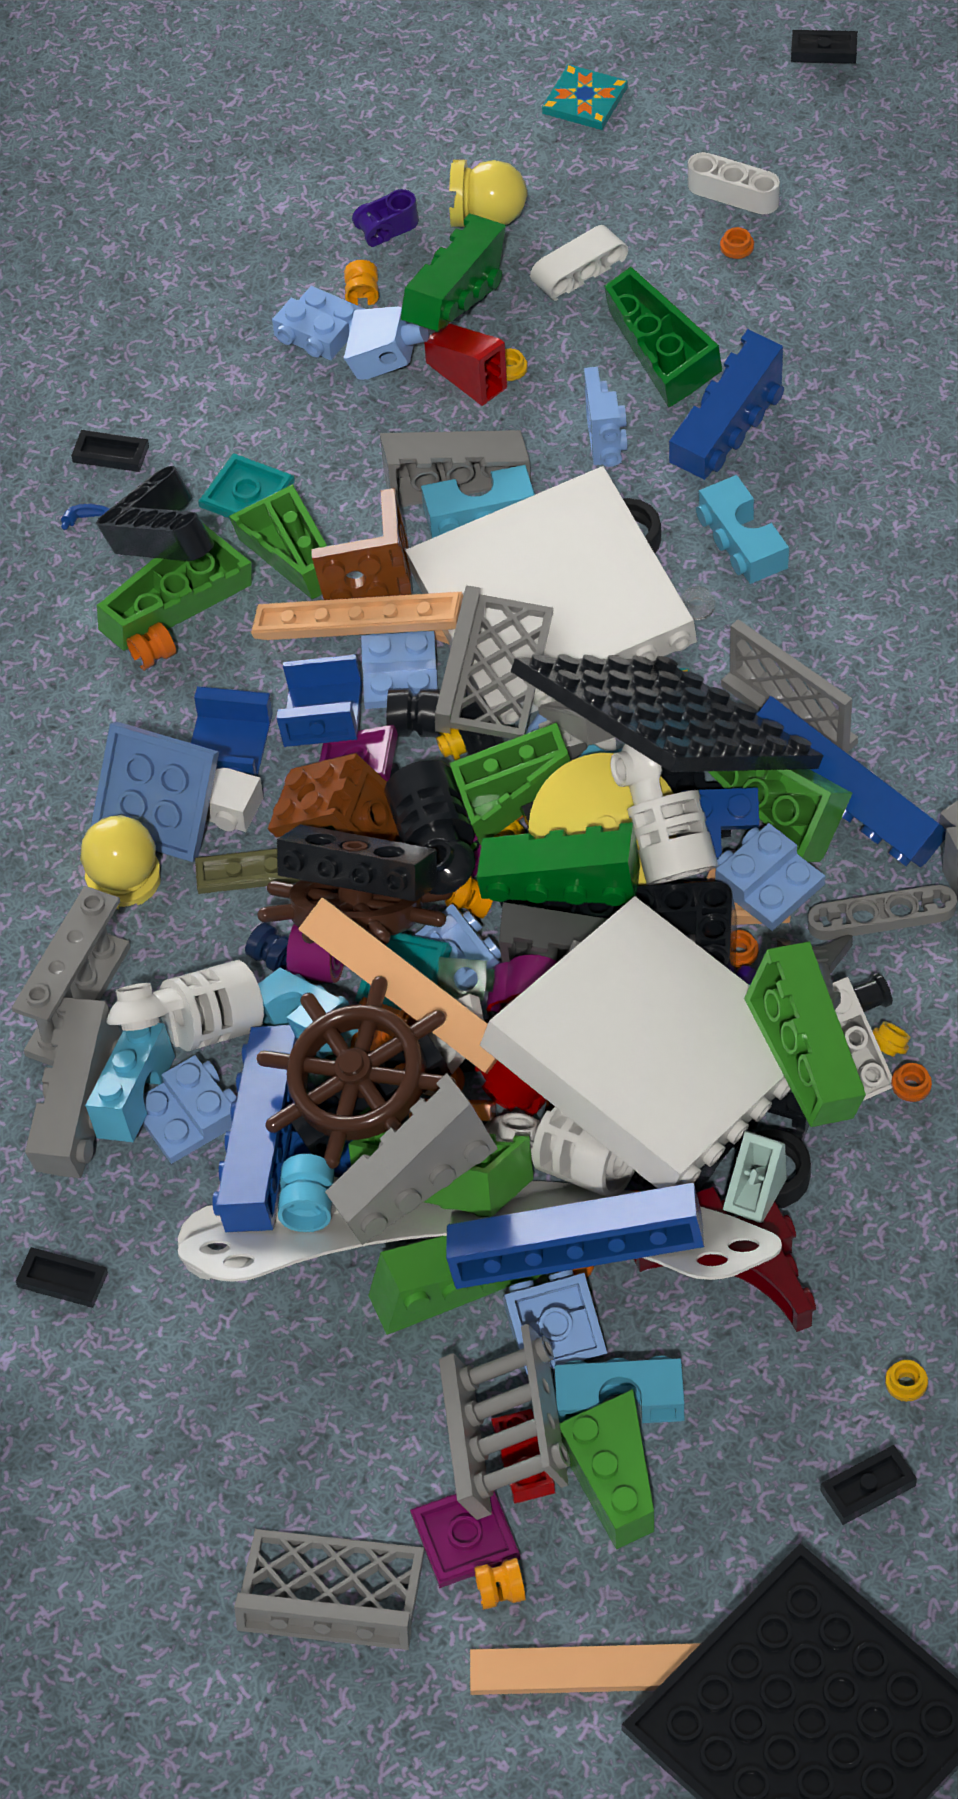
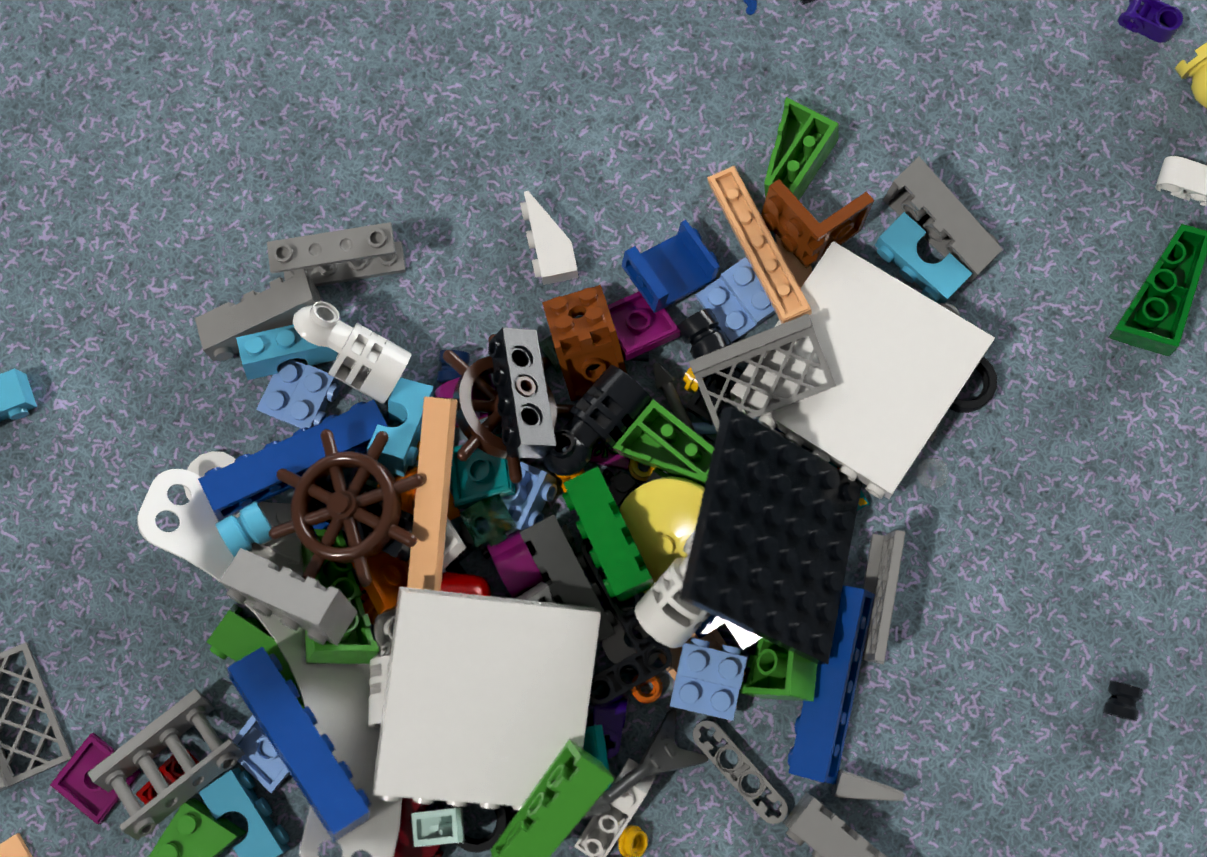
camera: 60 degrees right, 25 degrees up
(61, 1277) = (134, 399): black tile -> none
(121, 860) = (455, 223): light yellow tile -> none
(151, 524) = (754, 33): black beam -> none
(152, 645) = (650, 118): orange wheel -> none
(159, 784) = (518, 208): medium blue plate -> none
(173, 591) = (706, 99): bright green wedge -> none
(233, 725) = (606, 223): blue panel -> none
(238, 871) = (510, 304): olive tile -> none
(241, 485) = (832, 88): teal tile -> none
(315, 322) = (1018, 35): light blue plate -> none
(361, 281) = (1077, 39): light orange wheel -> none
(381, 341) = (1024, 93): light blue torso -> none
(456, 275) = (1114, 109): green wedge -> none
(469, 361) = (1047, 167): red slope -> none
(509, 1579) = (66, 825): light orange wheel -> none
(518, 363) = (1072, 190): yellow plate -> none
(604, 420) = (1050, 306): light blue plate -> none
(730, 407) = (1129, 388): blue wedge -> none
(751, 550) = (1005, 488): medium azure arch -> none
(873, 993) = (659, 804): black bush -> none

